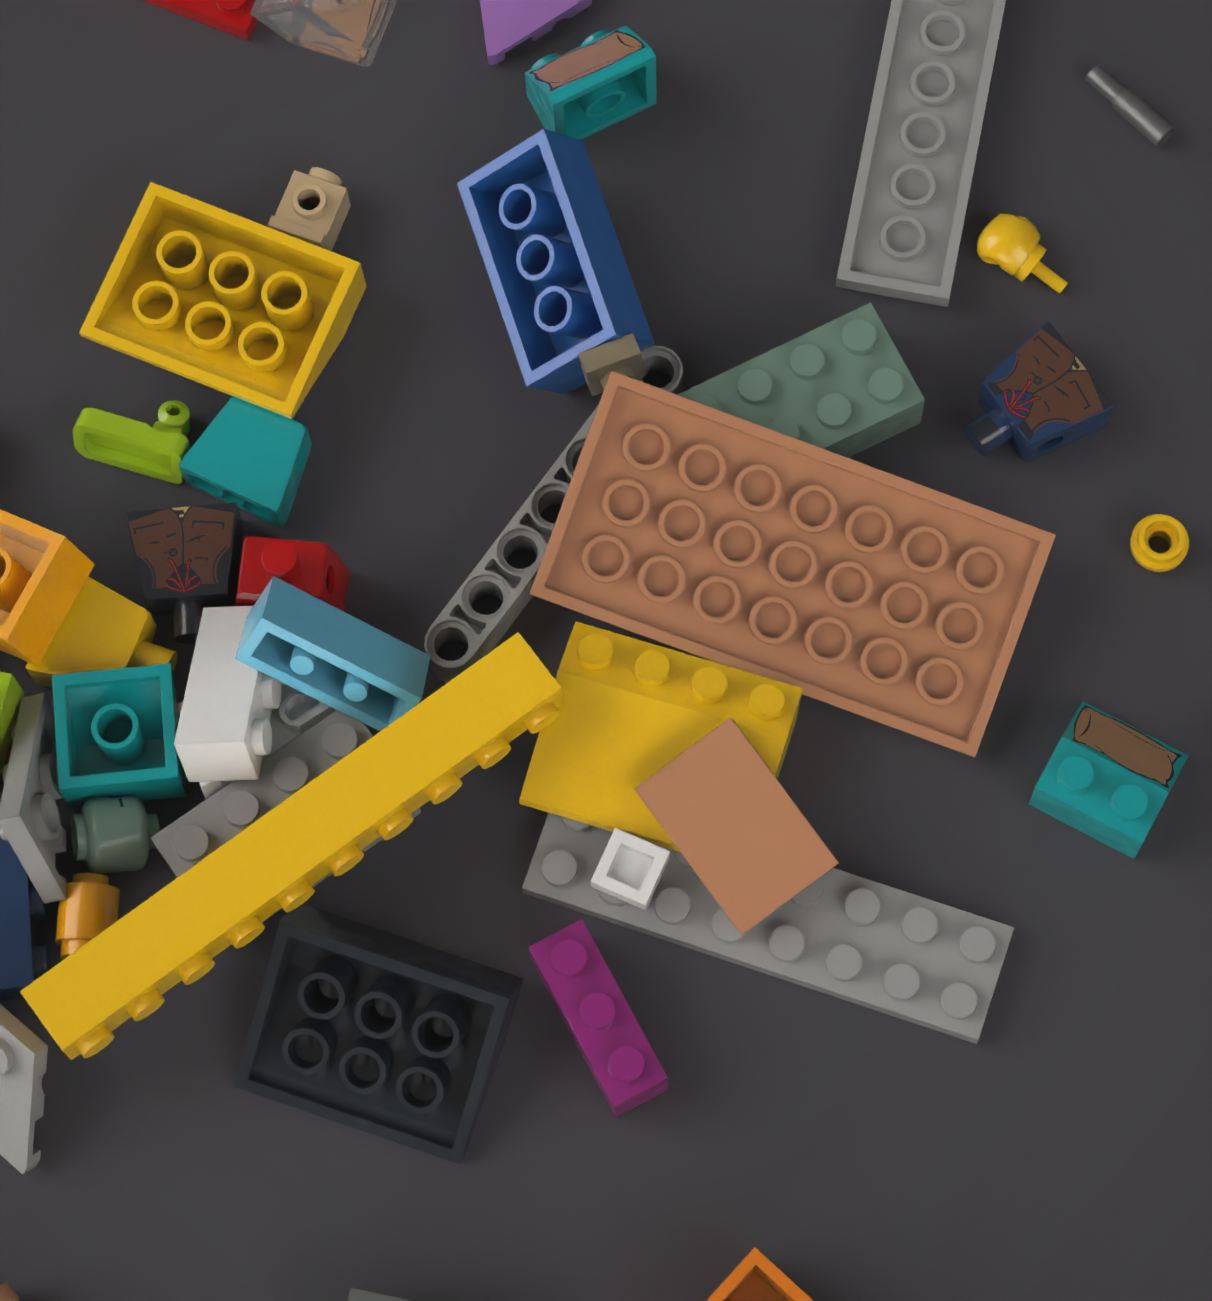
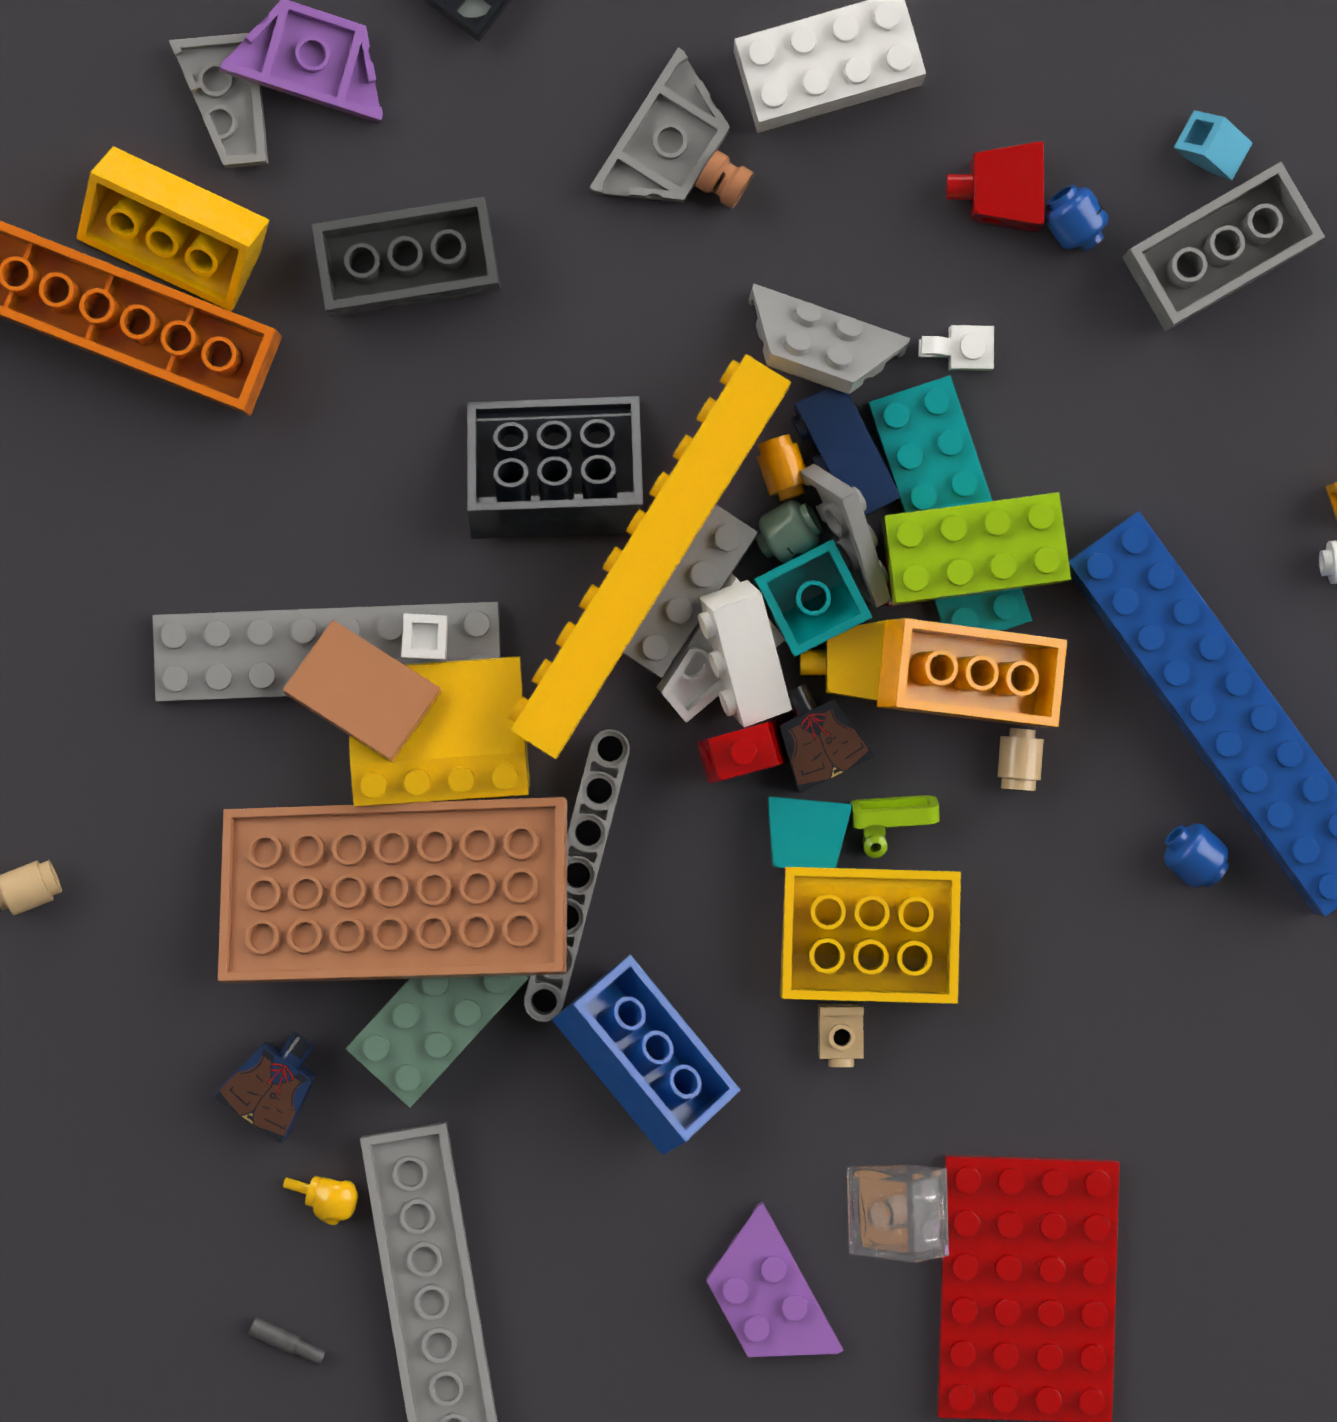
camera: 155 degrees right, 15 degrees up
(332, 656) = (681, 701): medium azure brick -> none
(594, 83) = (677, 1207): teal slope -> none
(598, 1018) = (409, 530): magenta brick -> none
(618, 356) = (571, 986): dark tan plate -> none
(1107, 779) = (126, 830): teal slope -> none
(1159, 526) = (139, 1020): yellow plate -> none

